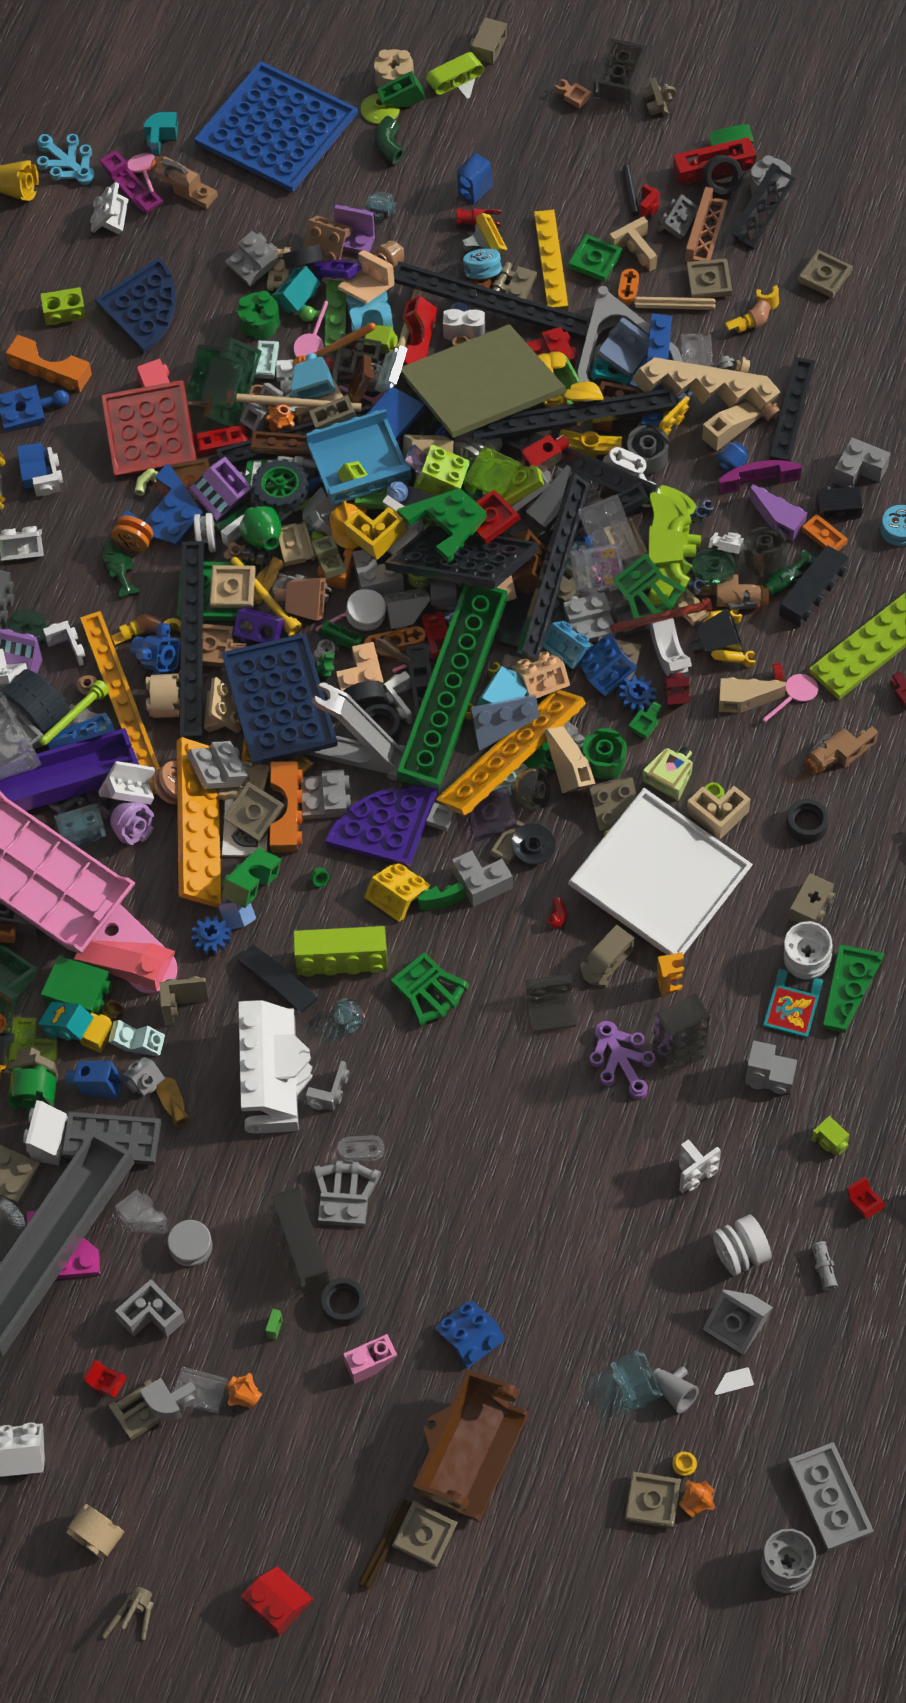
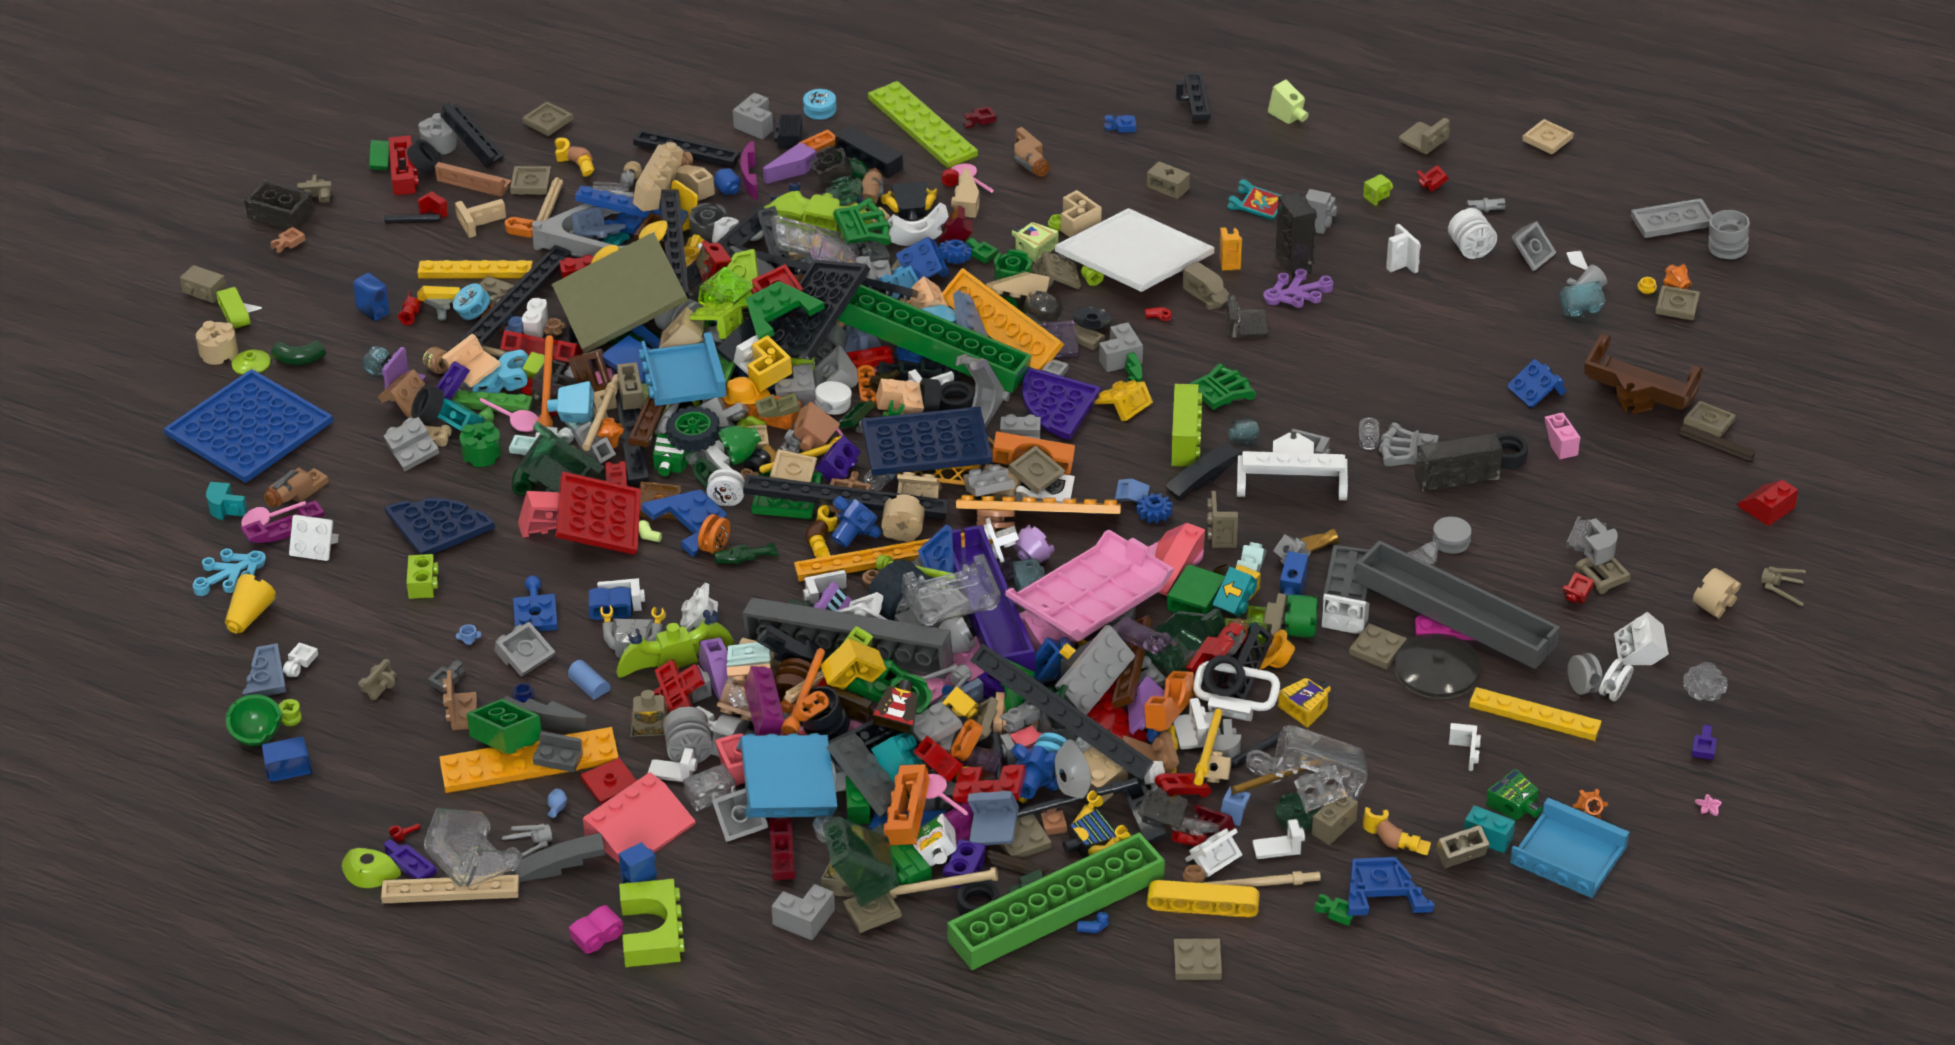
camera: 85 degrees left, 20 degrees down
(70, 373) = (475, 603): orange arch -> none
(150, 1305) = (1517, 554): light grey brick -> none
(221, 488) = (681, 469): medium lavender slope -> none
(243, 883) = (1096, 472): green arch -> none
(243, 1391) = (1589, 507): orange rock -> none
(274, 1324) = (1528, 489): bright green tile -> none
(324, 876) = (1101, 444): green hinge -> none
(351, 471) = (701, 374): lime slope -> none
(390, 369) = (581, 344): light aqua plate -> none
(397, 491) = (730, 343): medium blue plate -> none
(402, 91) = (245, 334): green slope -> none
(415, 458) = (703, 326): clear purple plate -> none
(595, 258) = (484, 241): green plate -> none
(678, 217) = (455, 191): dark grey bracket -> none
(704, 605) = (885, 195): clear red bar -> none
(729, 543) = (820, 185): white plate -> none
(802, 835) = (1090, 184): black tyre -> none
(811, 939) = (1217, 179): white wheel -> none
(850, 981) = (1236, 168): green wing -> none

